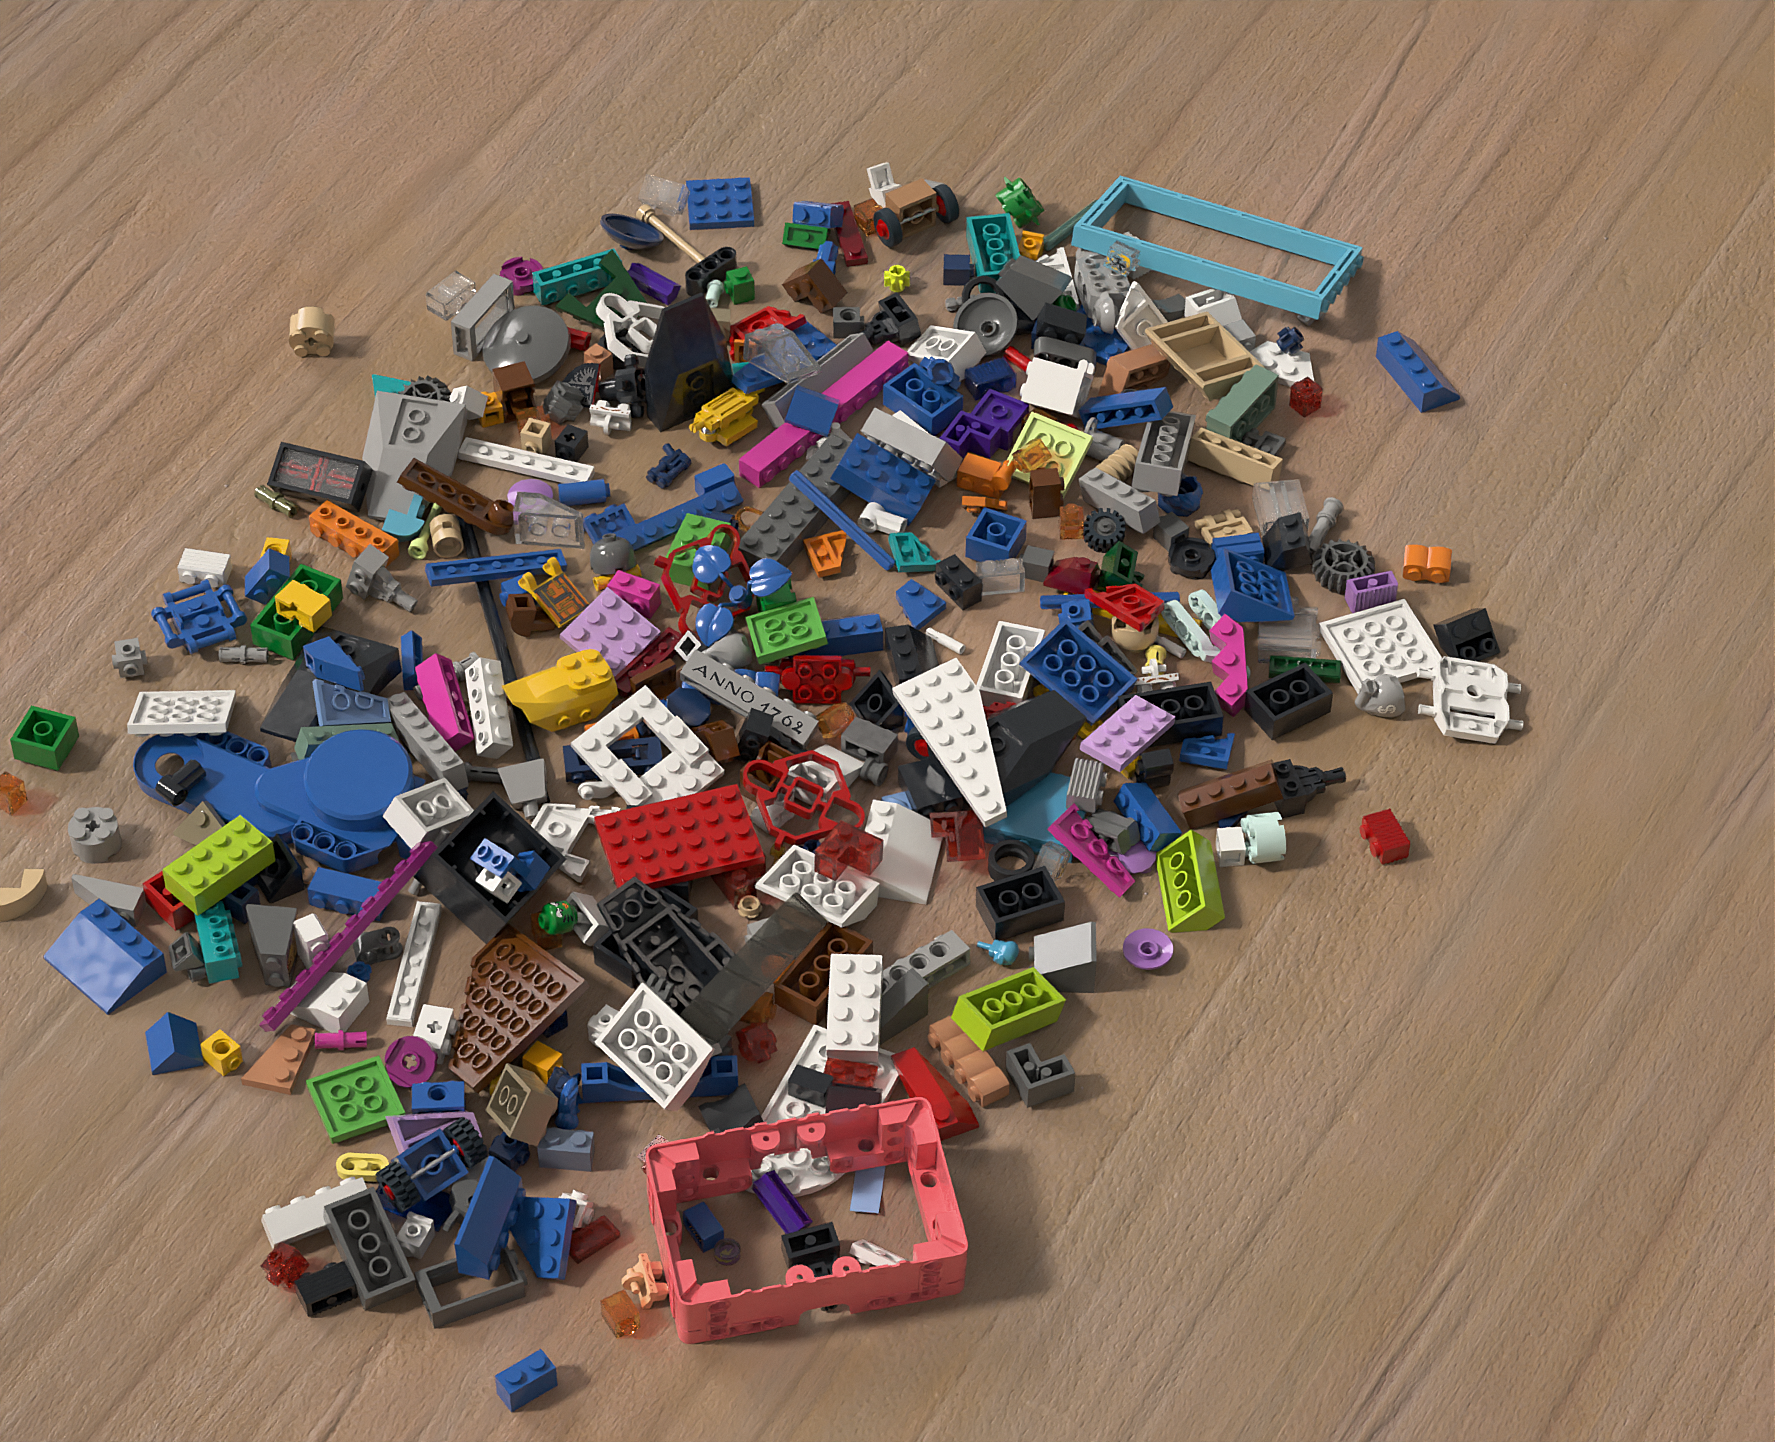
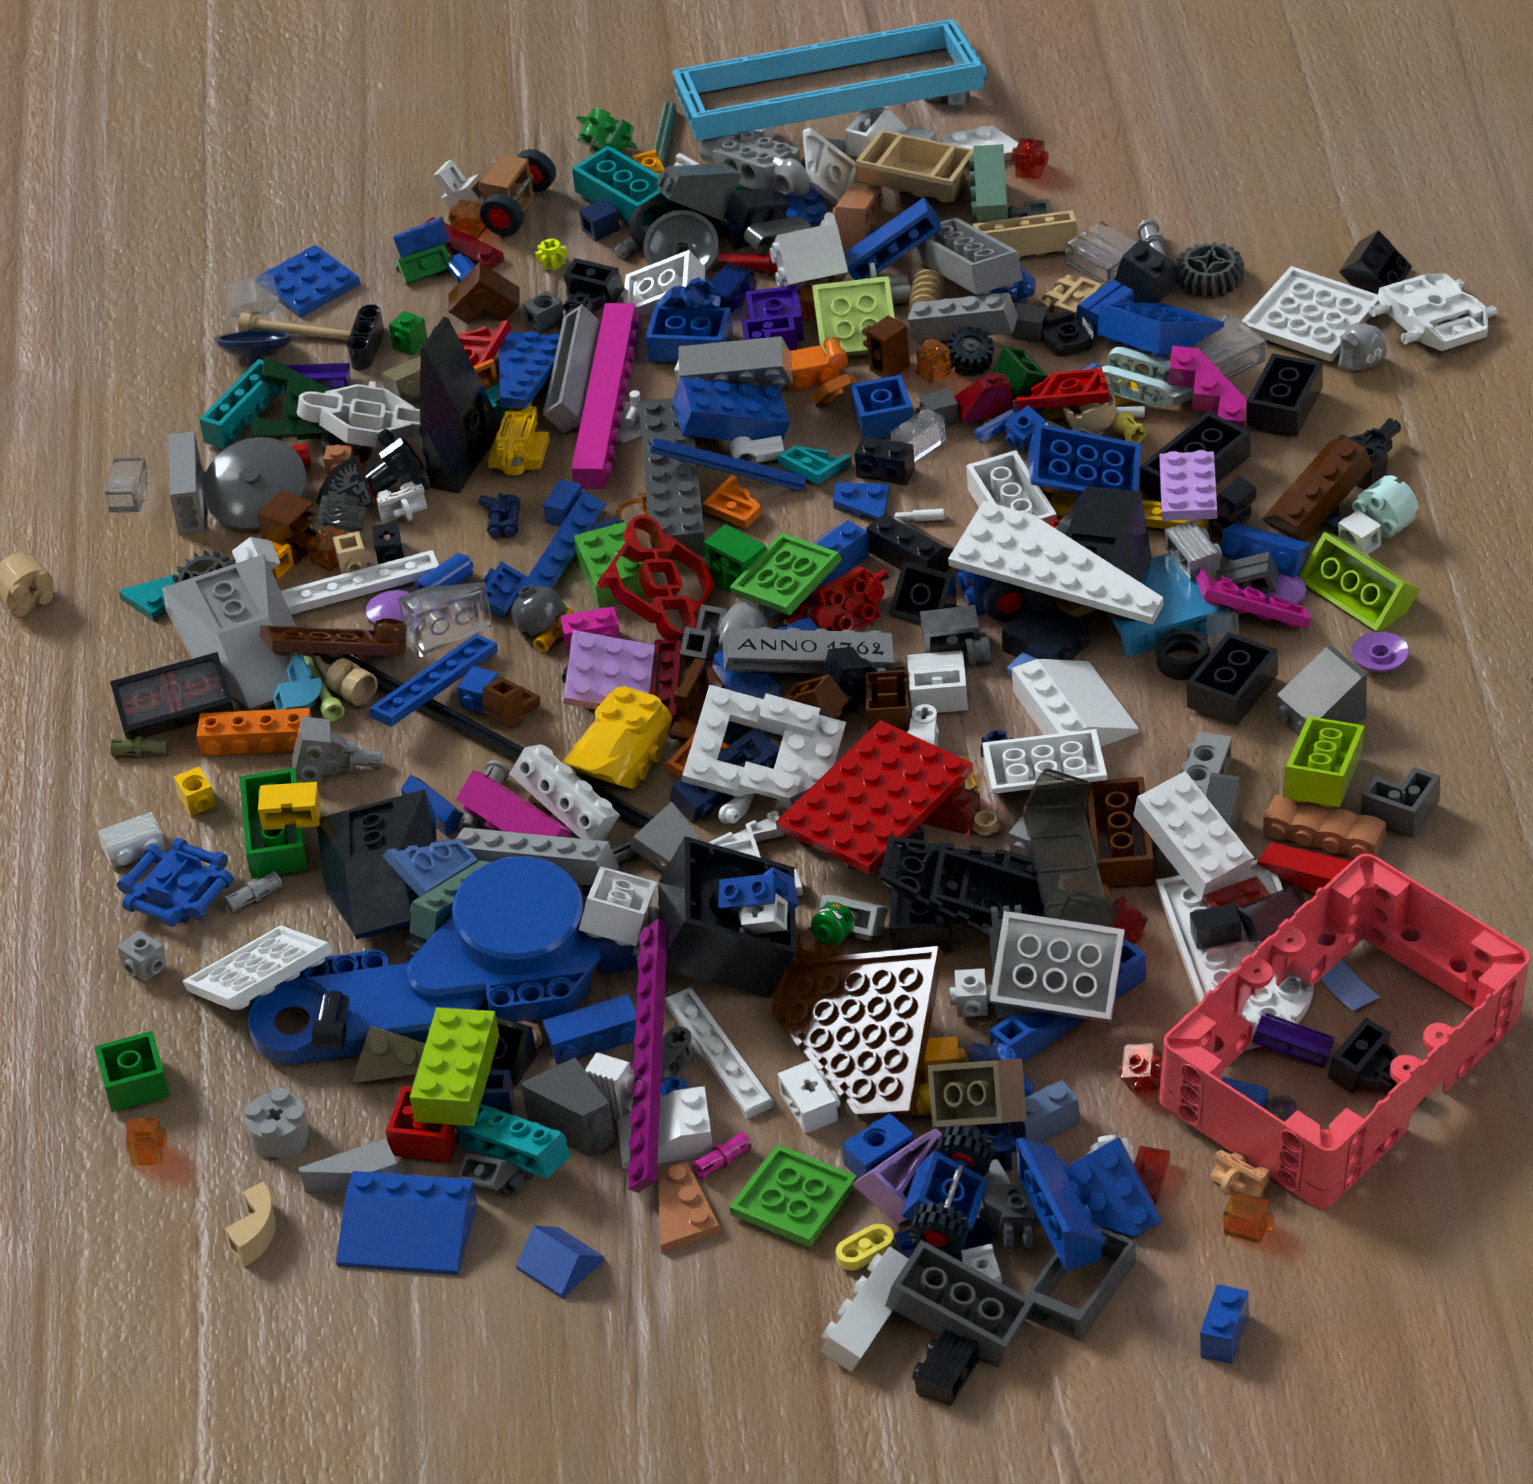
camera: 30 degrees left, 5 degrees down
(221, 1052) = (618, 1234): yellow brick -> none
(267, 576) = (213, 808): blue brick -> none
(284, 1265) = (889, 1370): clear red brick -> none
(332, 664) = (377, 831): blue slope -> none
(397, 1065) = (830, 1115): magenta plate -> none
(516, 266) = (179, 424): magenta plate -> none
(556, 595) = (516, 667): flag -> none
(709, 564) = (709, 601): blue plant -> none
(715, 289) = (385, 351): light aqua pin -> none
(731, 1112) = (1170, 993): black brick -> none
(780, 353) = (527, 356): clear slope -> none
(780, 769) = (917, 717): red piece -> none
(812, 410) = (603, 391): blue slope -> none
(835, 719) = (902, 626): clear orange brick -> none
(848, 847) = (1049, 710): clear red brick -> none
(872, 1254) = (1411, 1032): white plate -> none
(962, 834) = (1120, 646): clear red brick -> none
(1002, 952) = (1254, 728): dark azure piece -> none
(1031, 455) = (849, 320): clear orange brick -> none
(1122, 258) = (761, 124): clear brick -> none
(1166, 681) = (1142, 433): white hips -> none
(1207, 751) = (1259, 471): blue wing -> none
(1290, 340) = (973, 118): dark blue gear -> none
(1327, 670) = (1249, 371): dark green plate -> none
(1371, 591) = (1259, 274): medium lavender brick -> none
(1385, 836) = (1480, 453): red brick -> none
(1414, 372) = (1100, 94): blue slope -> none
(1427, 563) = (1278, 230): orange brick -> none

